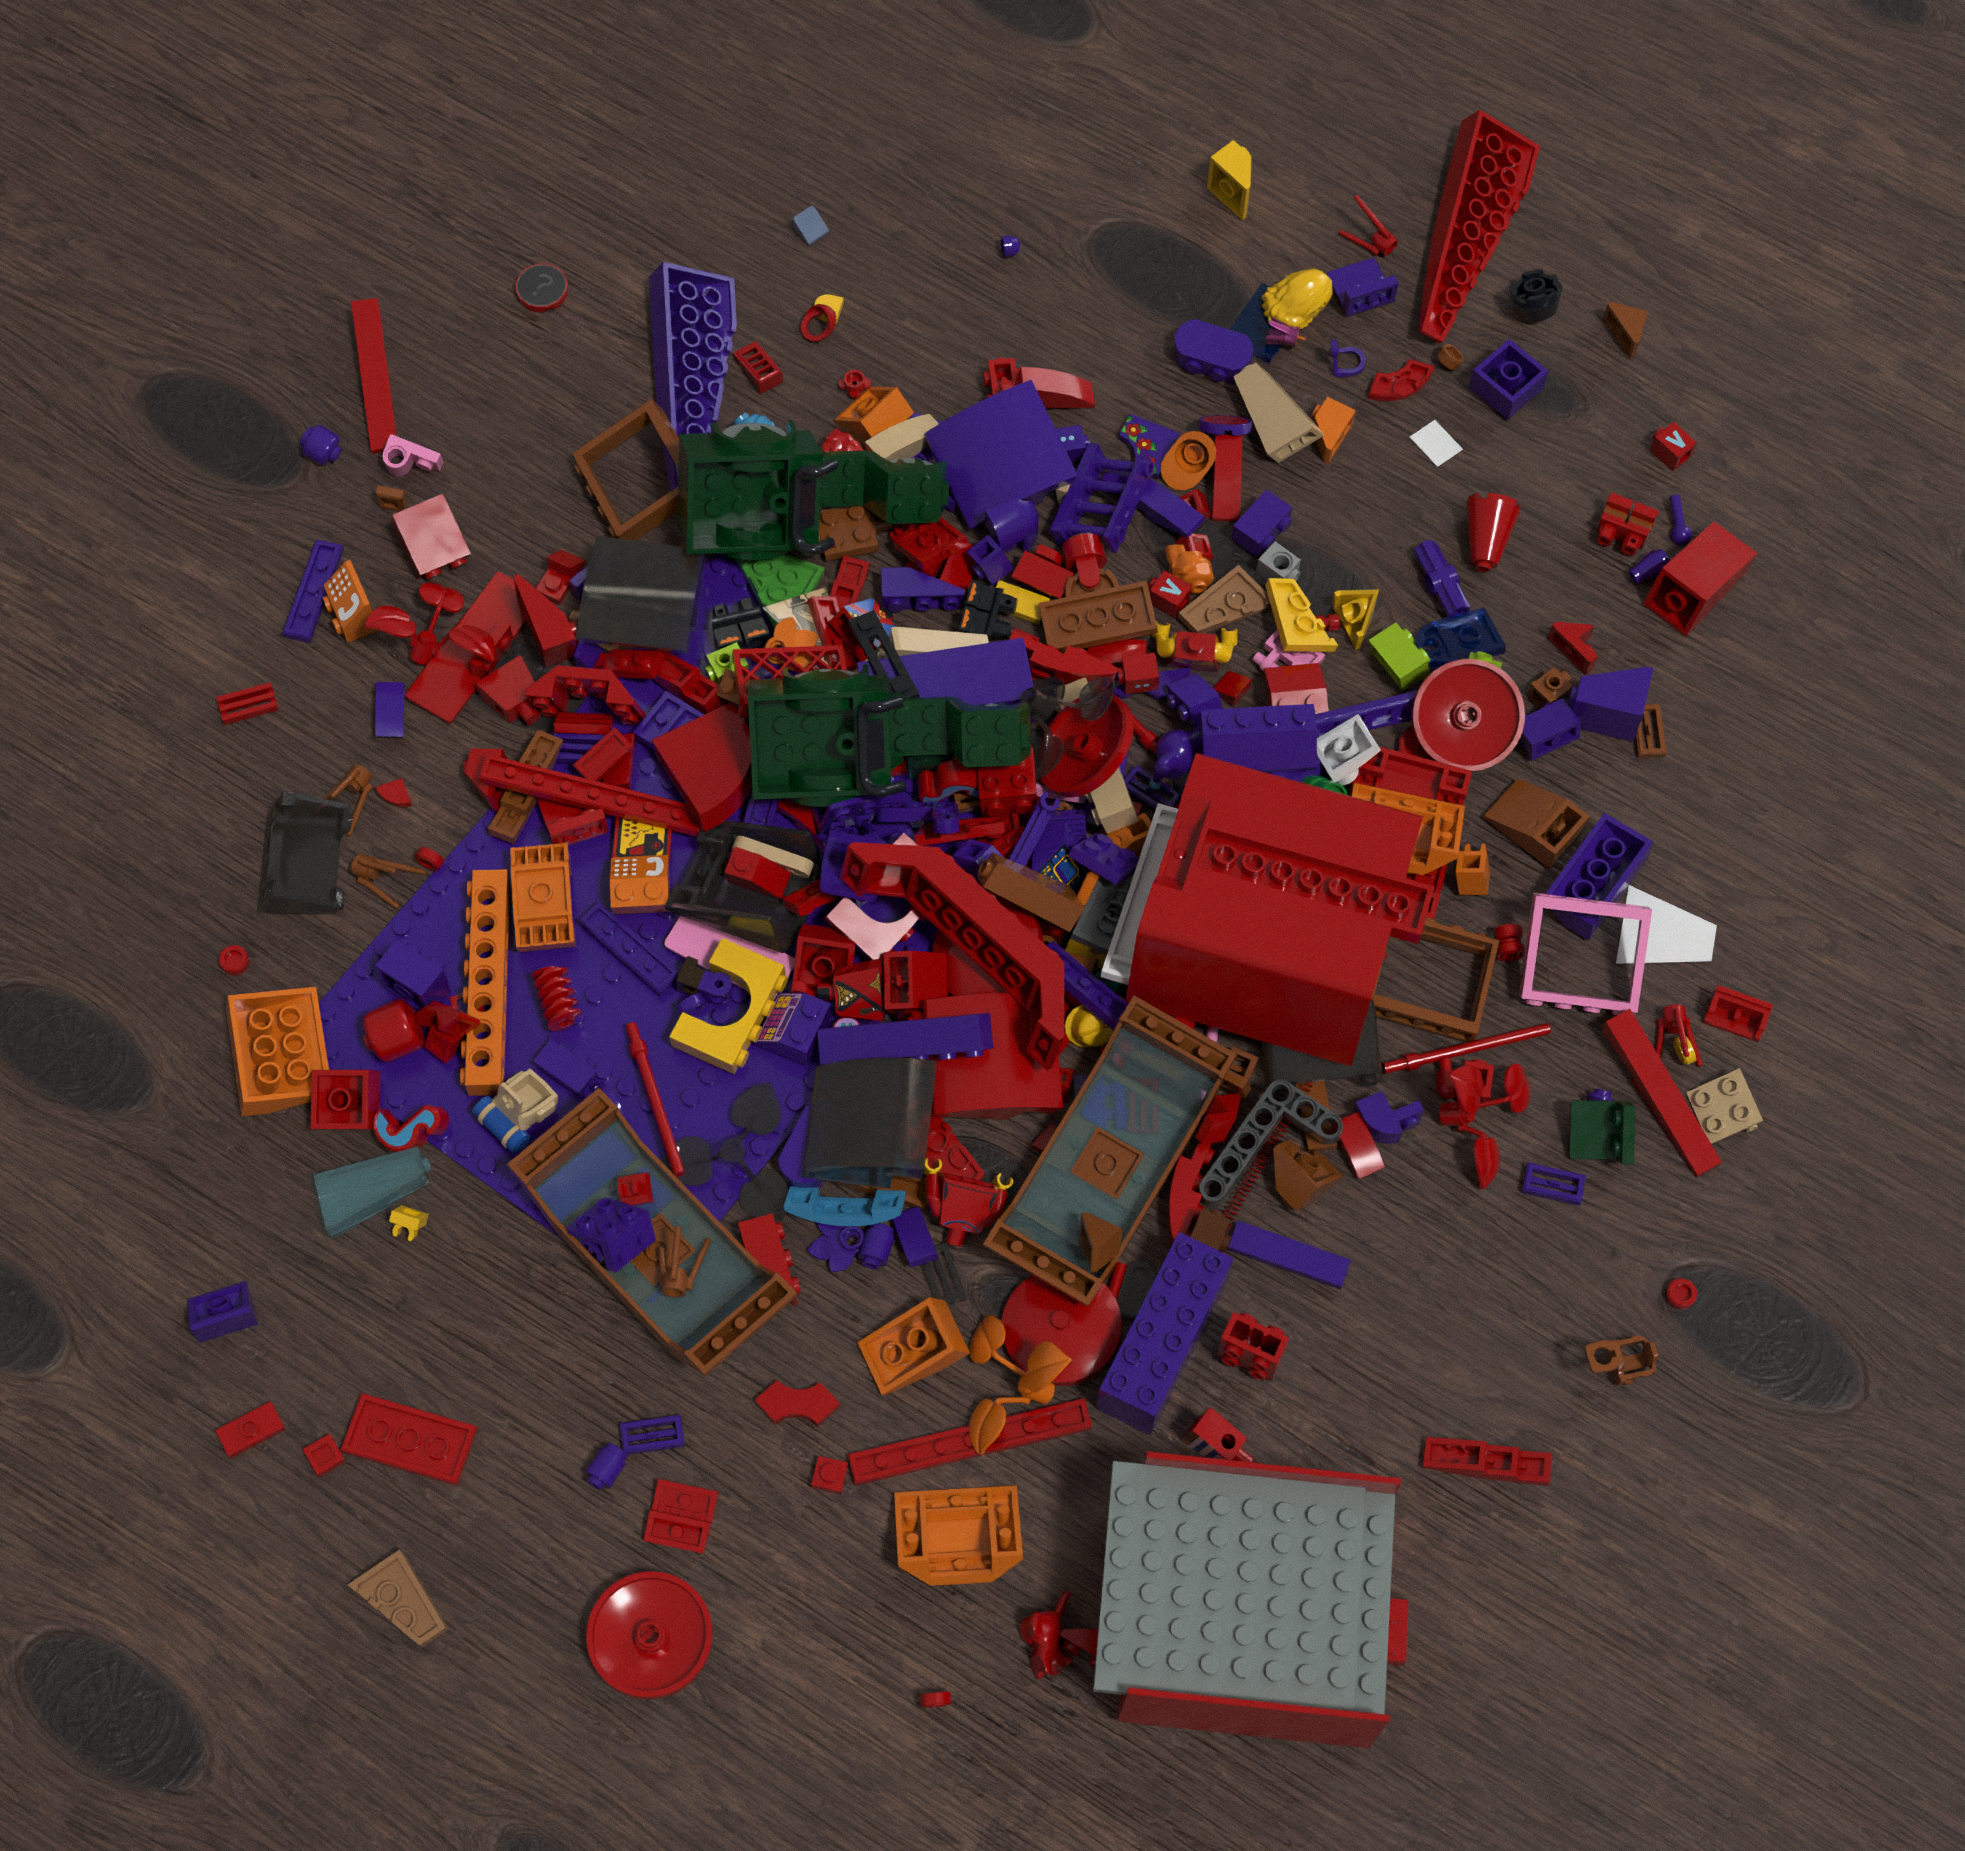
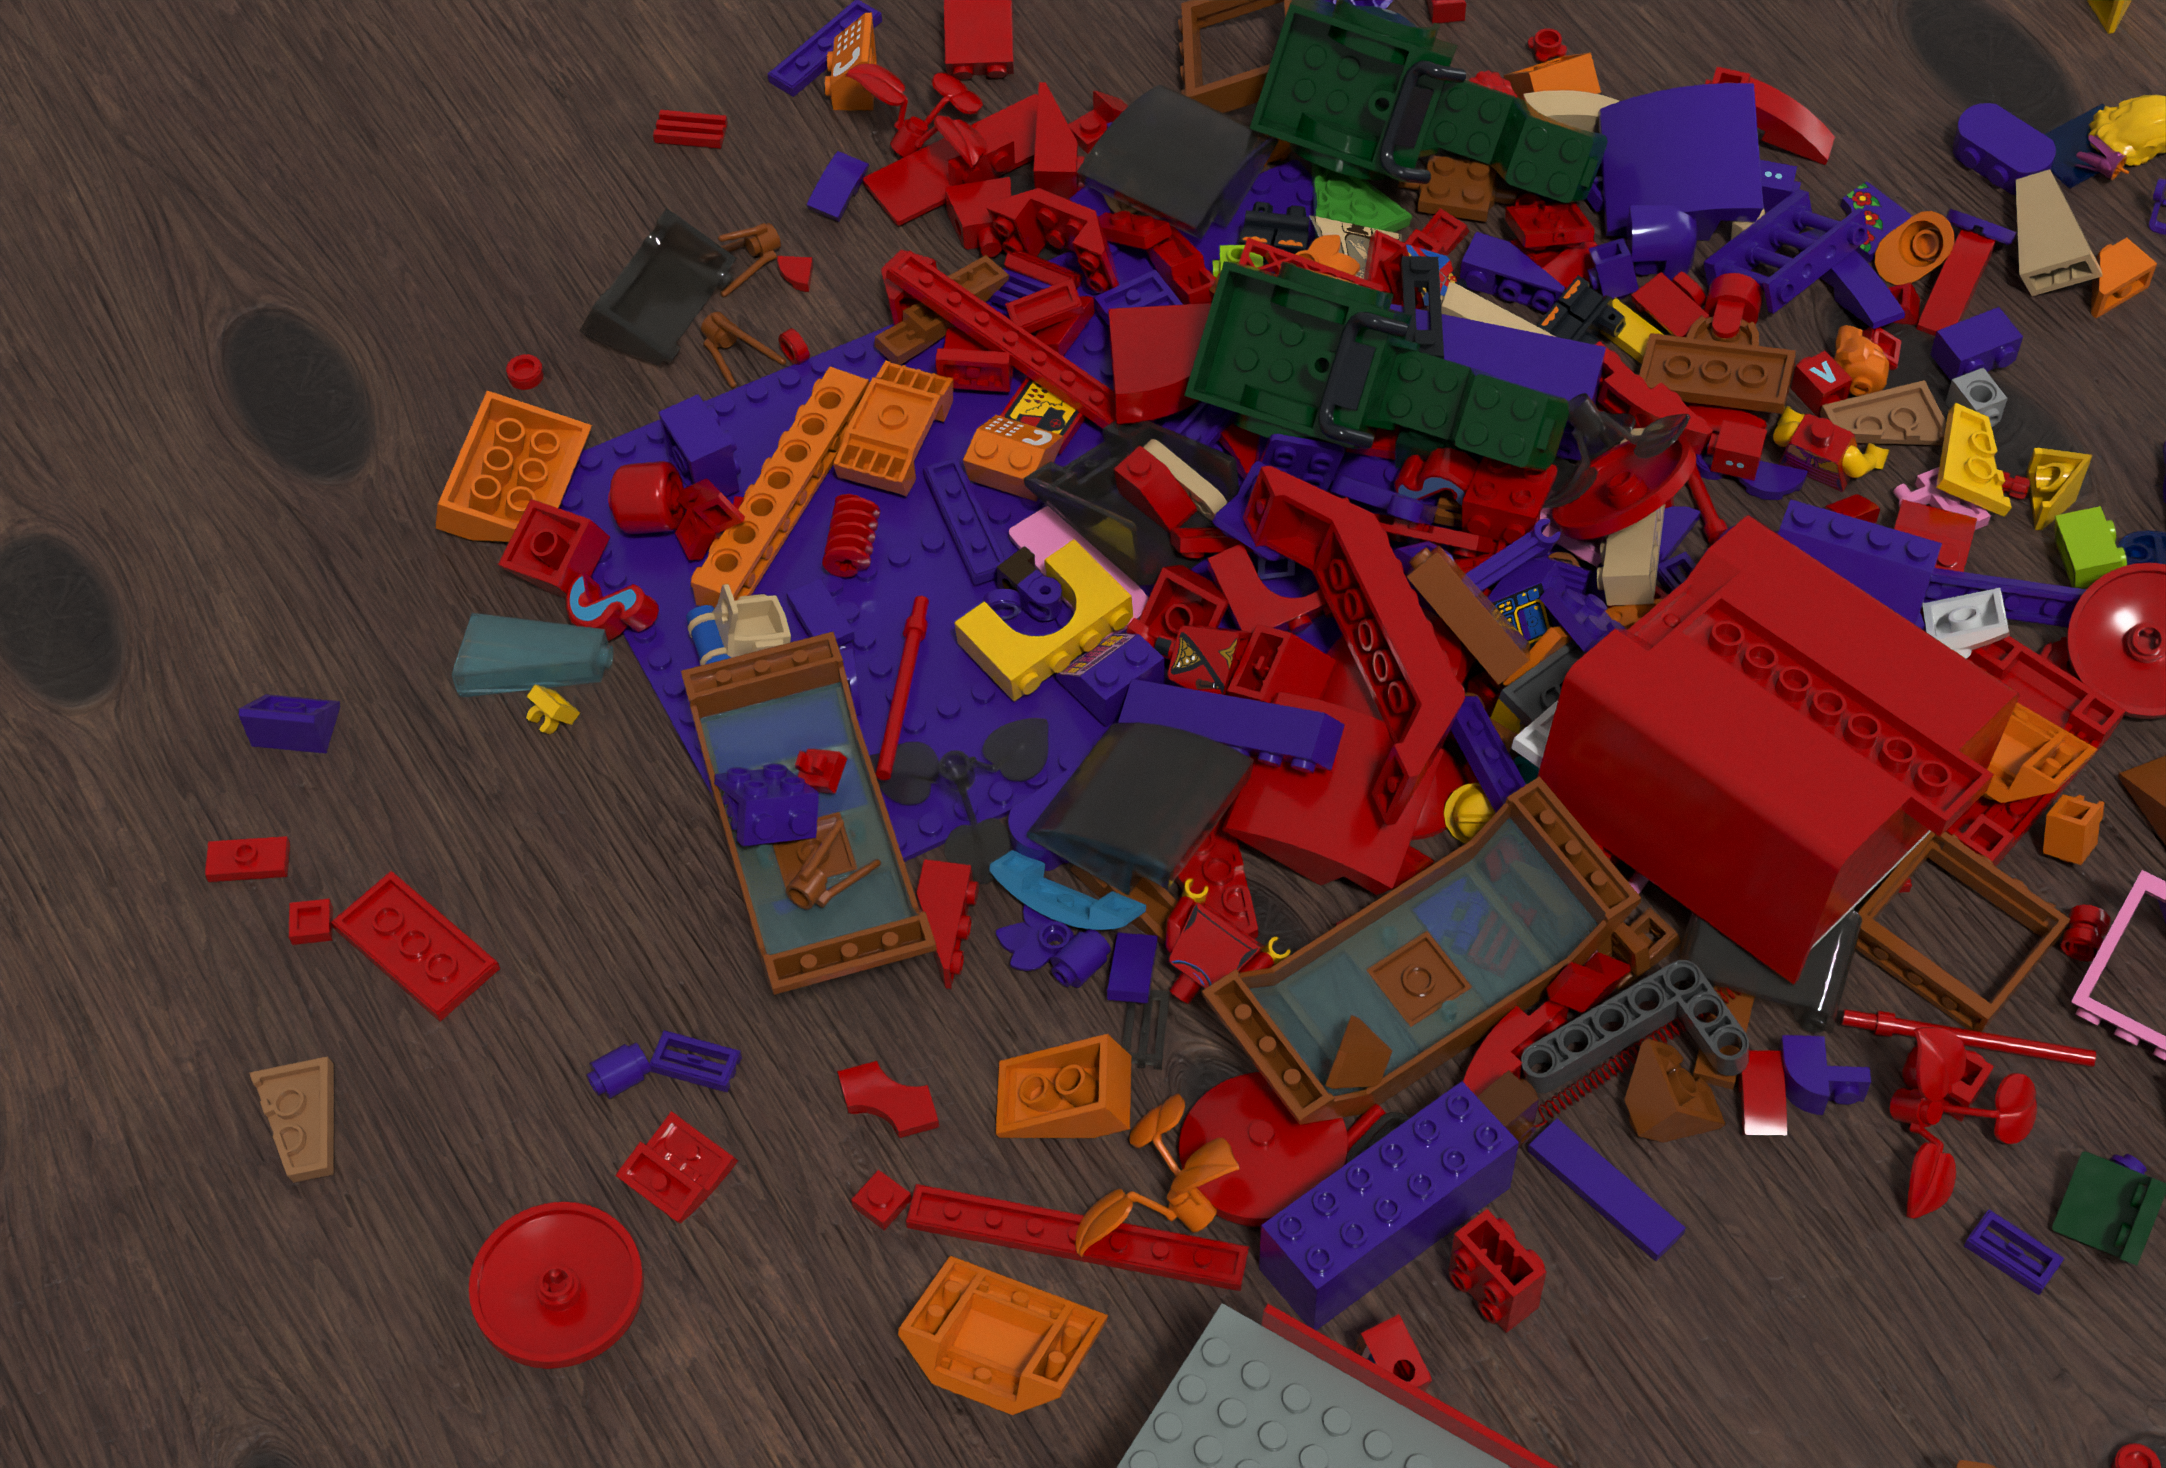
camera: 30 degrees right, 10 degrees down
(1191, 696) = (1782, 488): dark purple brick -> none

